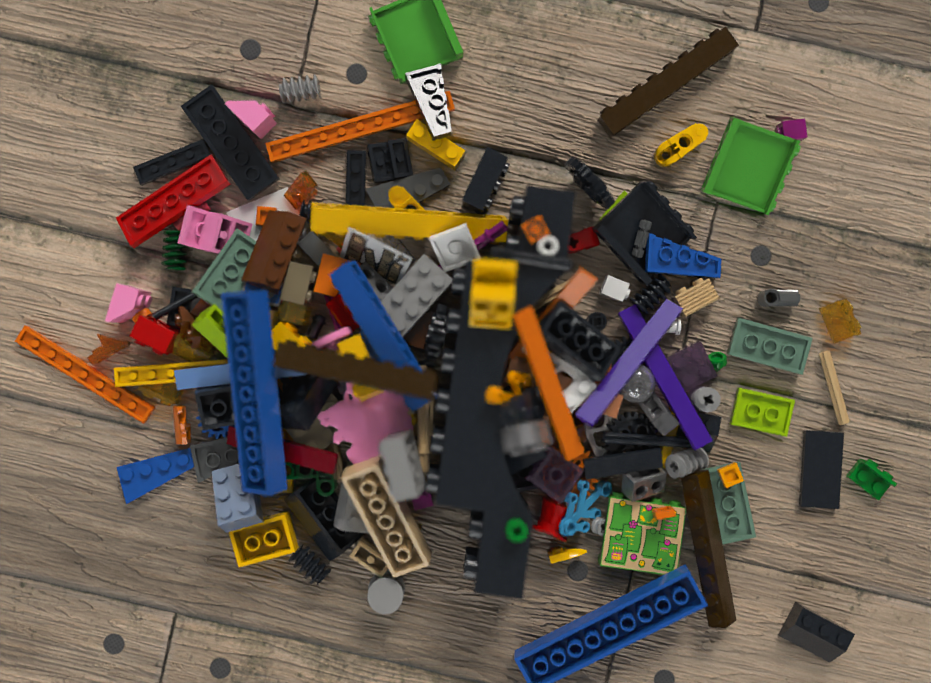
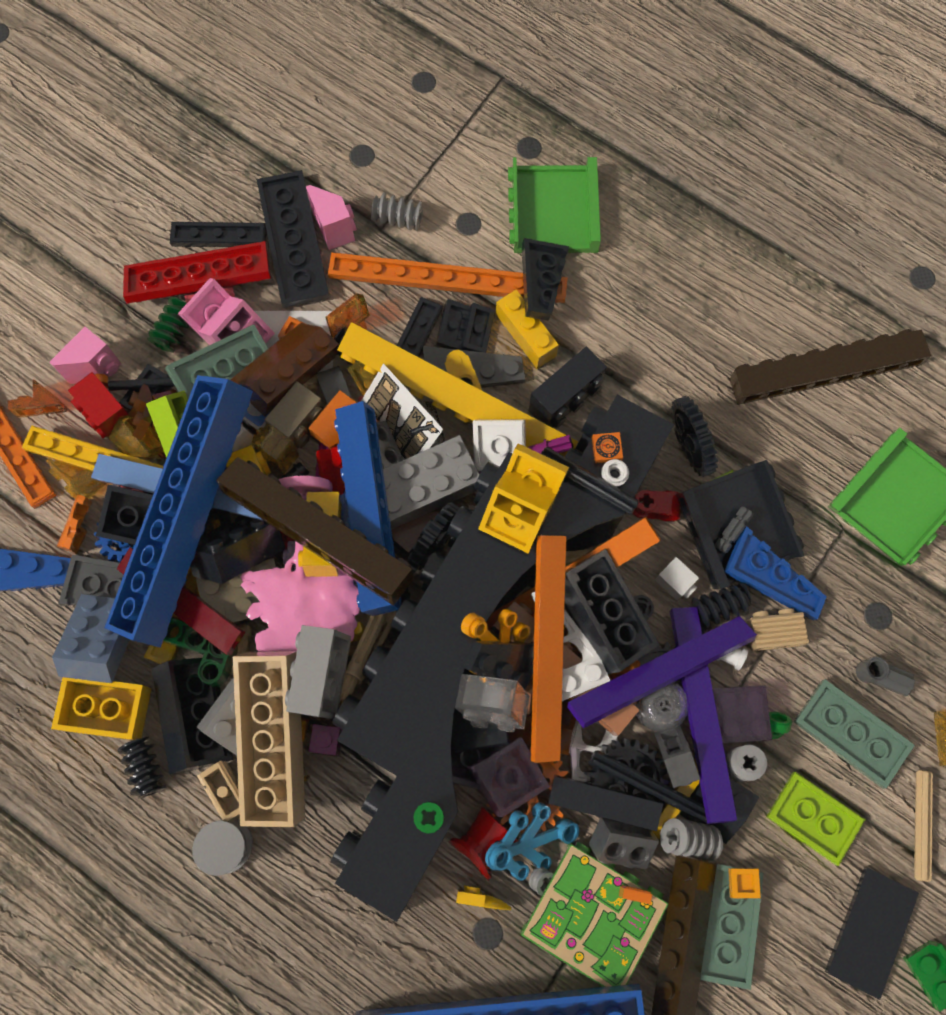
camera: 20 degrees right, 15 degrees down
(692, 135) = (840, 437): yellow piece -> none

